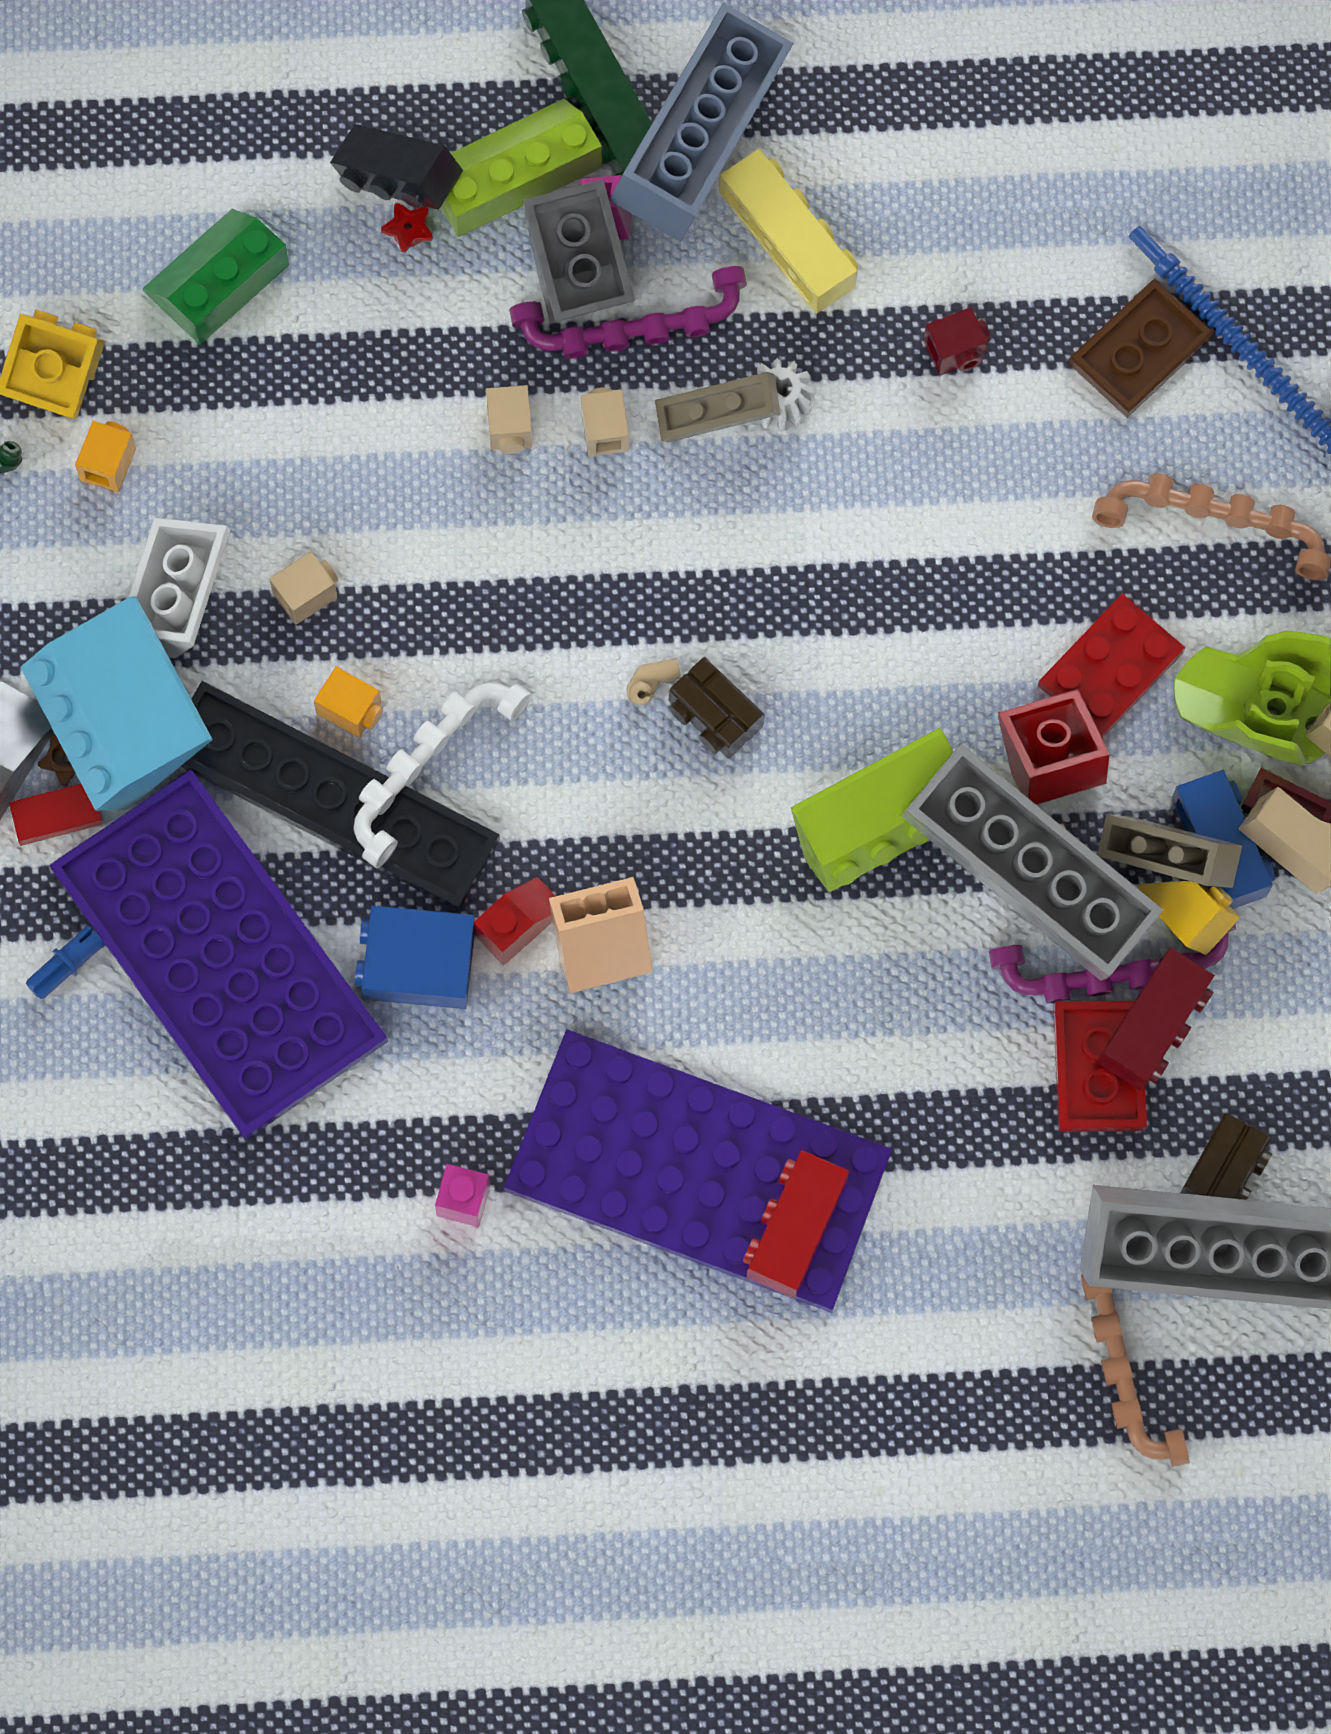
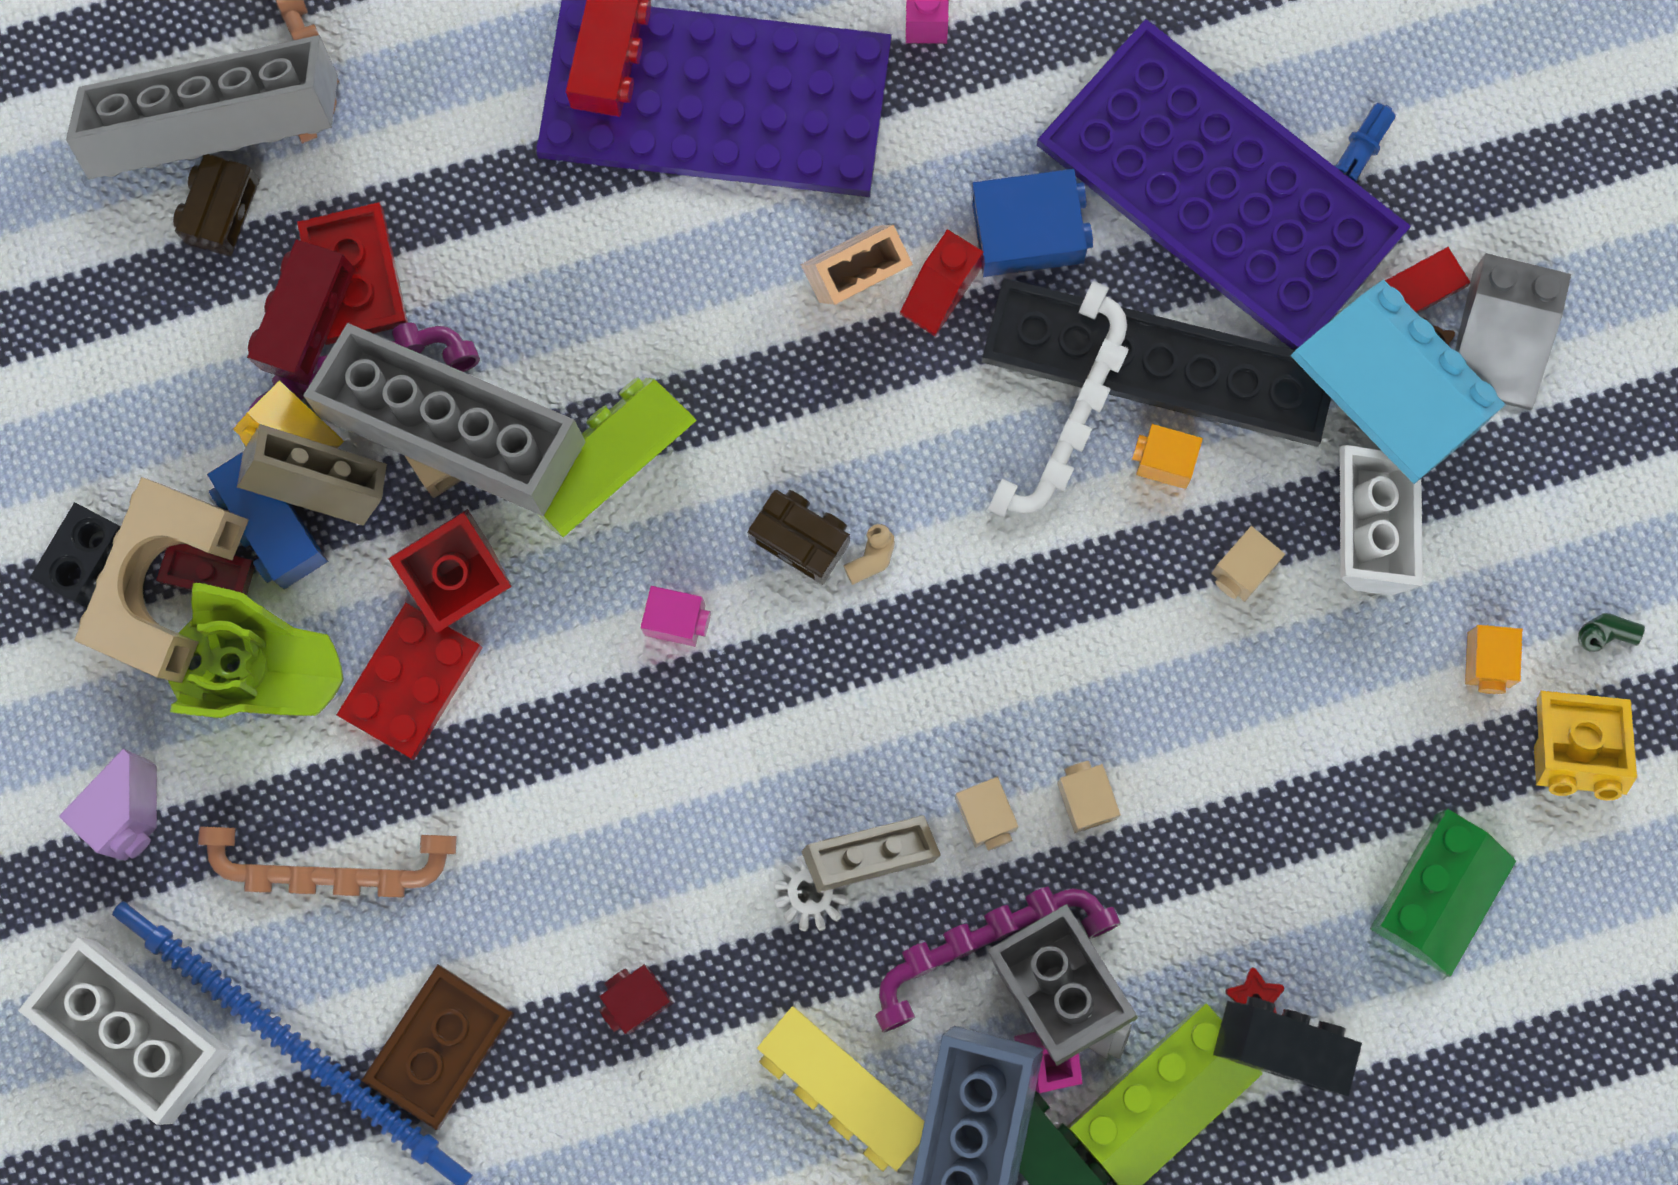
camera: 175 degrees right, 5 degrees up
(849, 661) = (675, 616): none -> dark pink brick

